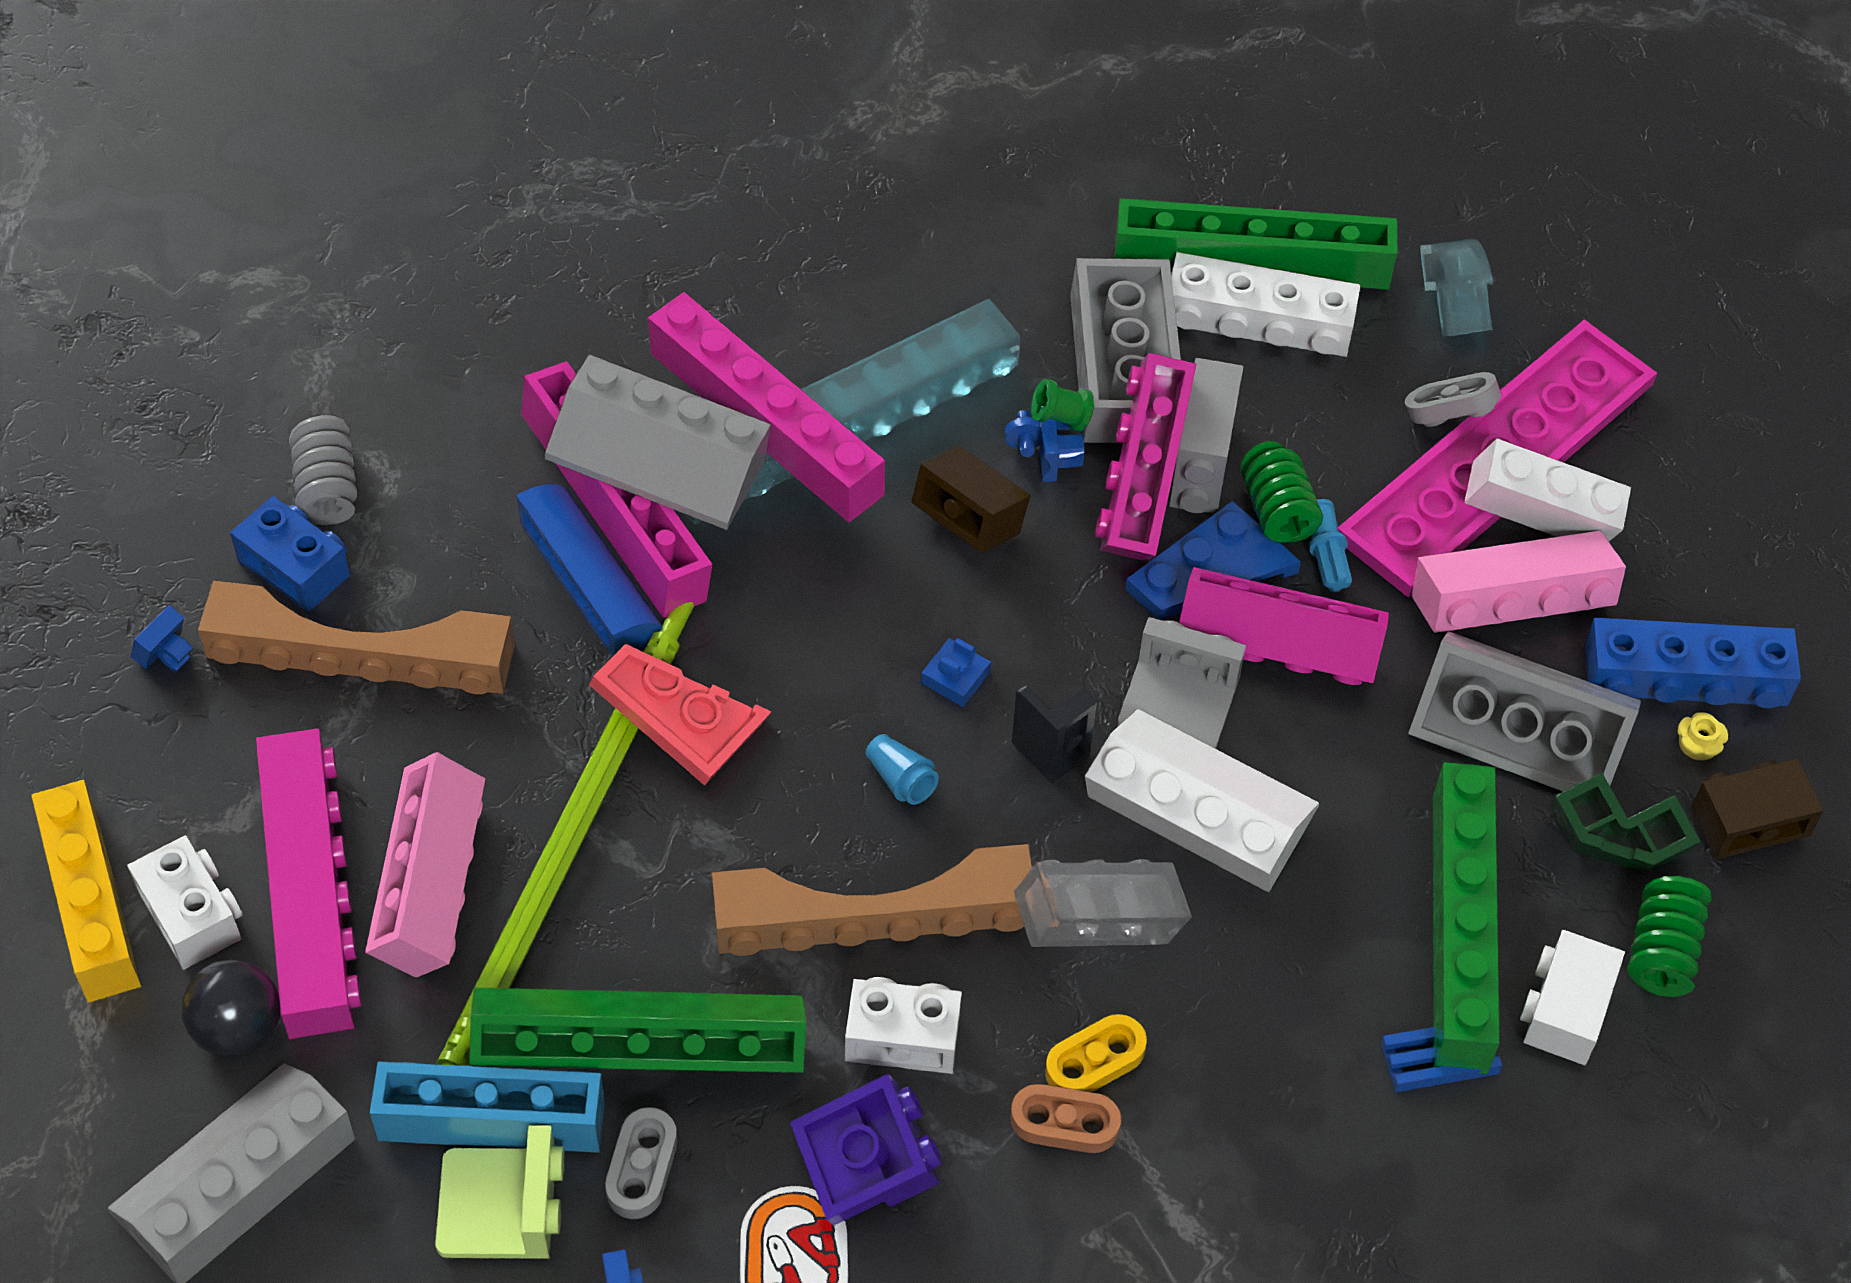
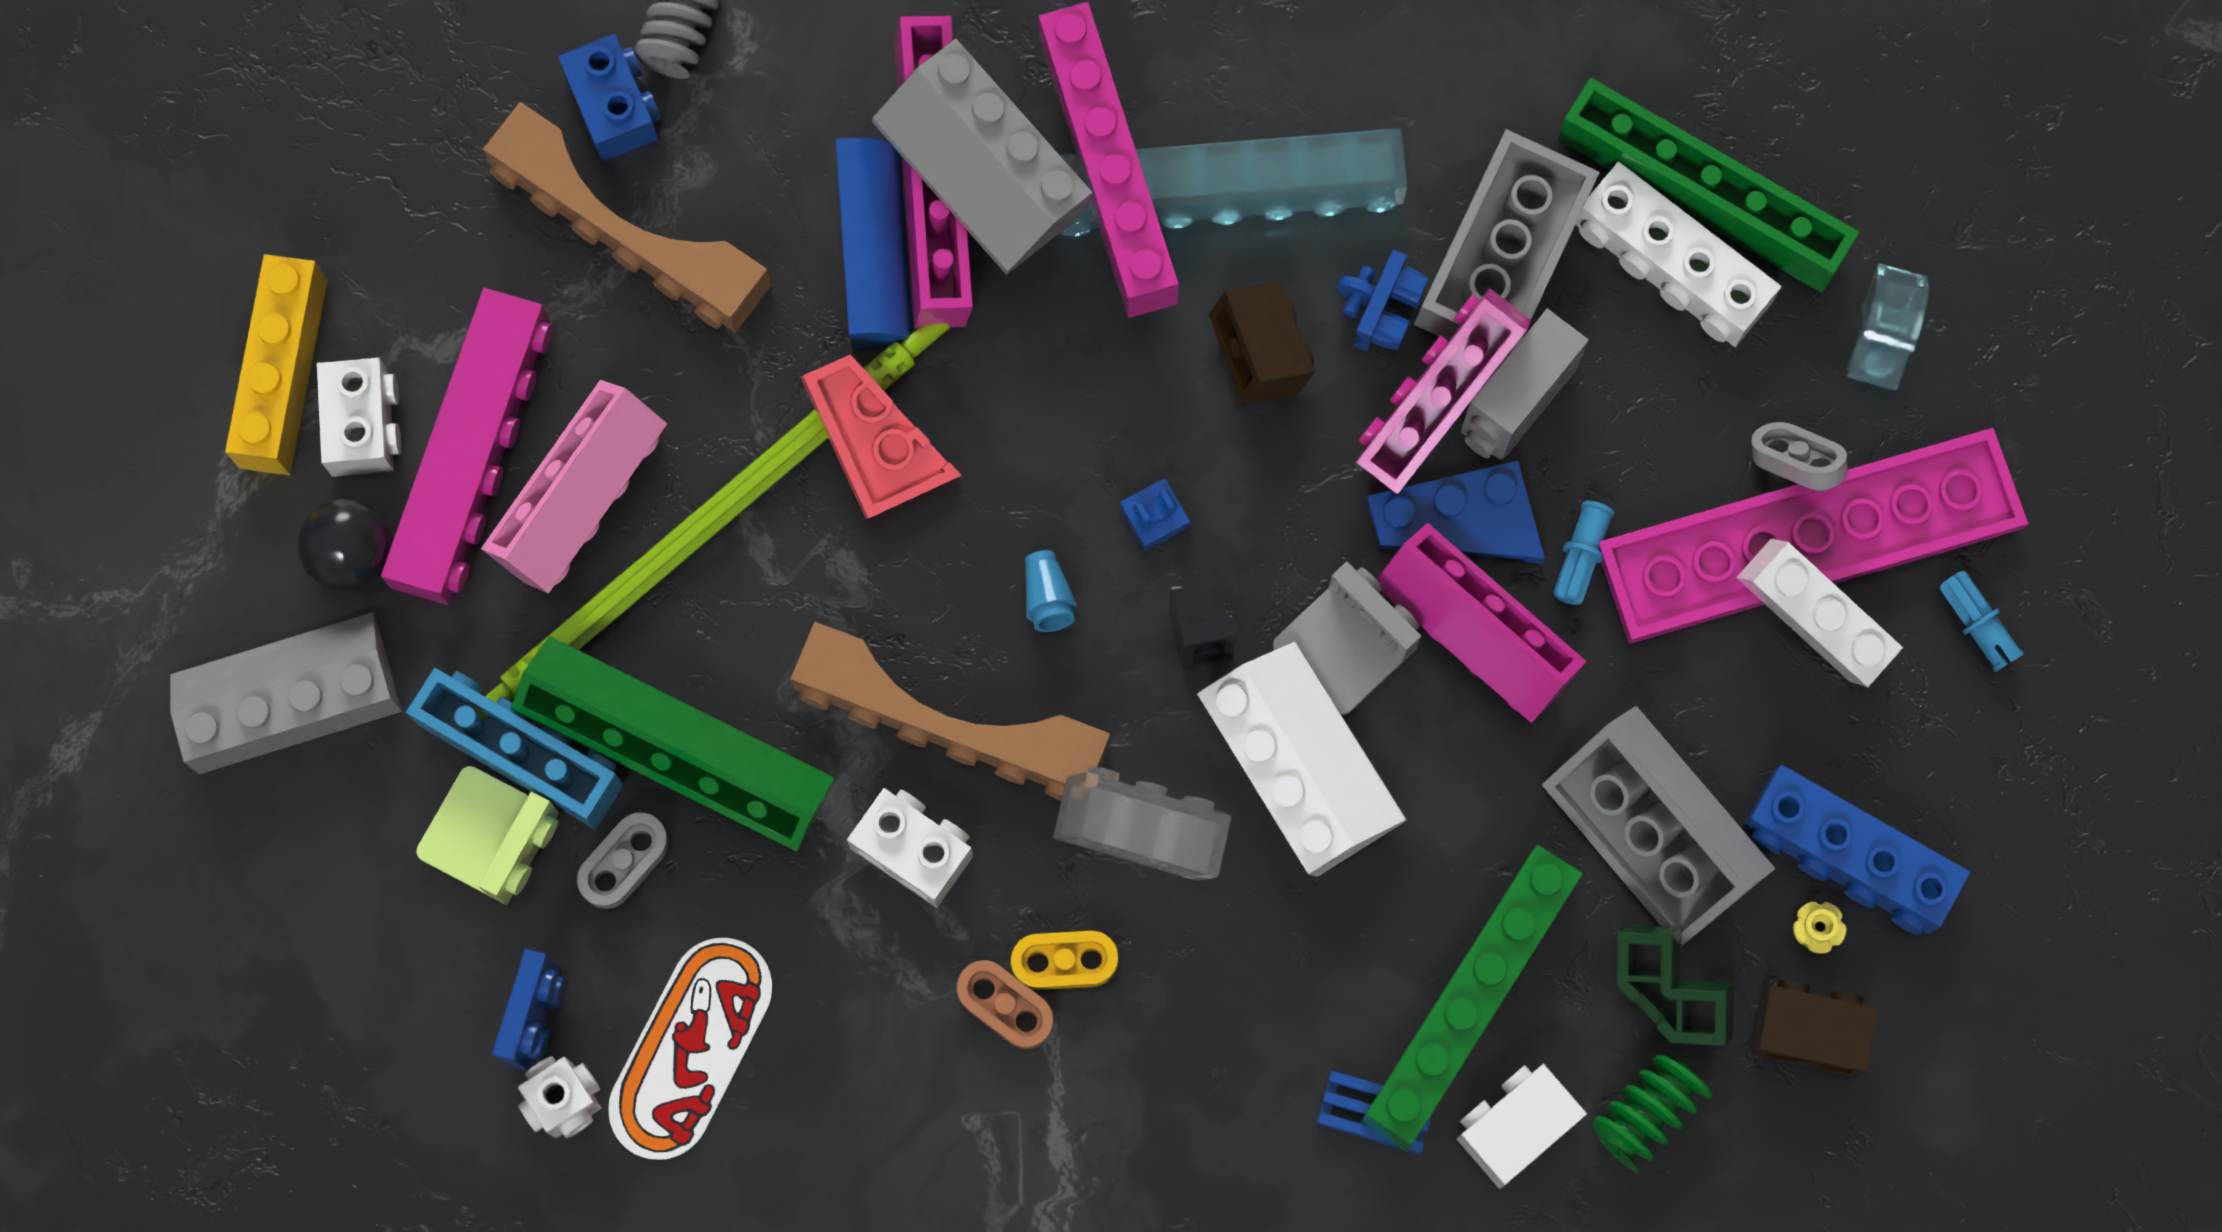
camera: 30 degrees right, 20 degrees up
(162, 640) = (453, 136): blue tile -> none
(867, 1149) = (816, 948): dark purple plate -> none
(1062, 405) = (1396, 291): green bush -> none
(1280, 492) = (1562, 480): green piece -> none
(1517, 581) = (1735, 688): bright pink brick -> none
(1668, 458) = (1980, 619): none -> dark azure axle

